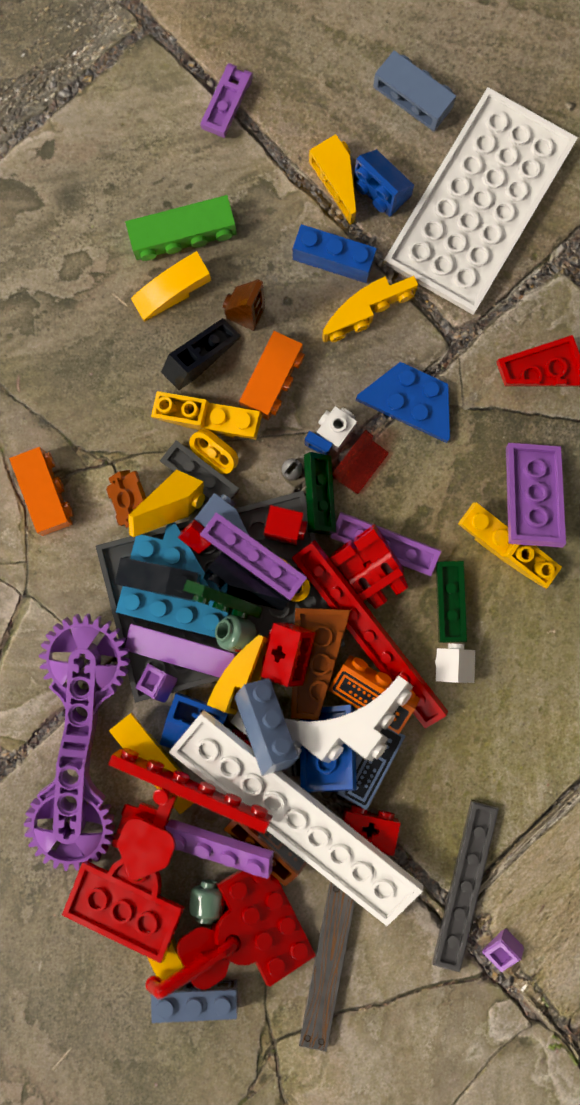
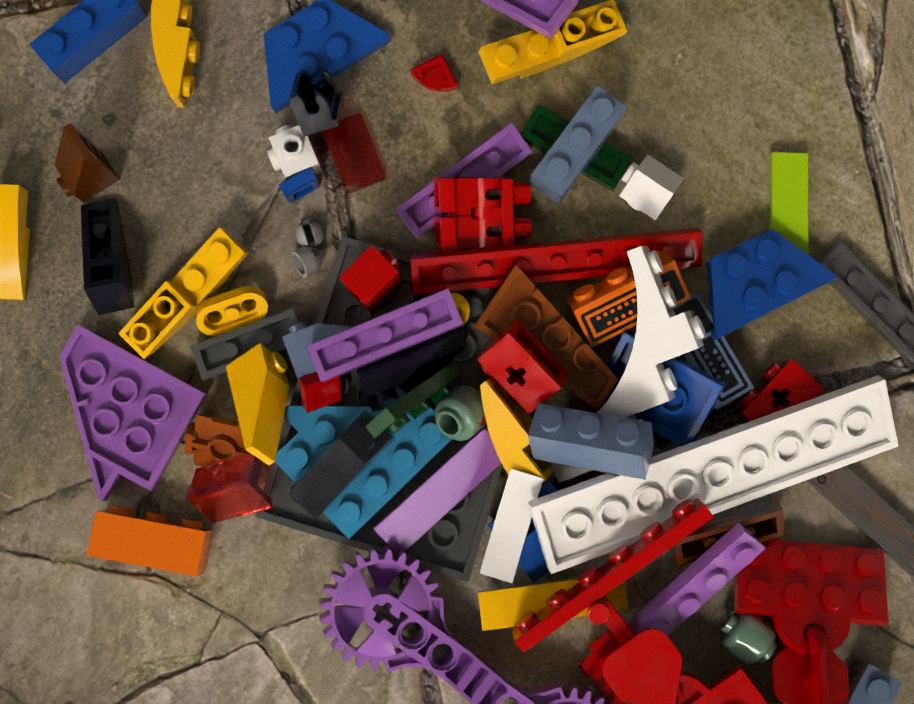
camera: 55 degrees left, 0 degrees up
(102, 518) = (229, 489): none -> clear red panel
(113, 425) = (125, 411): none -> medium lavender wing
(156, 683) = (461, 542): medium lavender slope -> none
(183, 708) = (510, 526): none -> white sticker
(272, 375) = (185, 187): orange brick -> none
(273, 477) = (305, 260): none -> light grey hinge
(319, 493) = (358, 218): dark green plate -> none
(372, 422) = (313, 106): none -> black hinge
(438, 771) = (759, 280): none -> blue wing
(442, 484) = (435, 75): none -> red tile
(451, 602) = (577, 145): none -> sand blue brick
(499, 761) = (789, 197): none -> lime tile

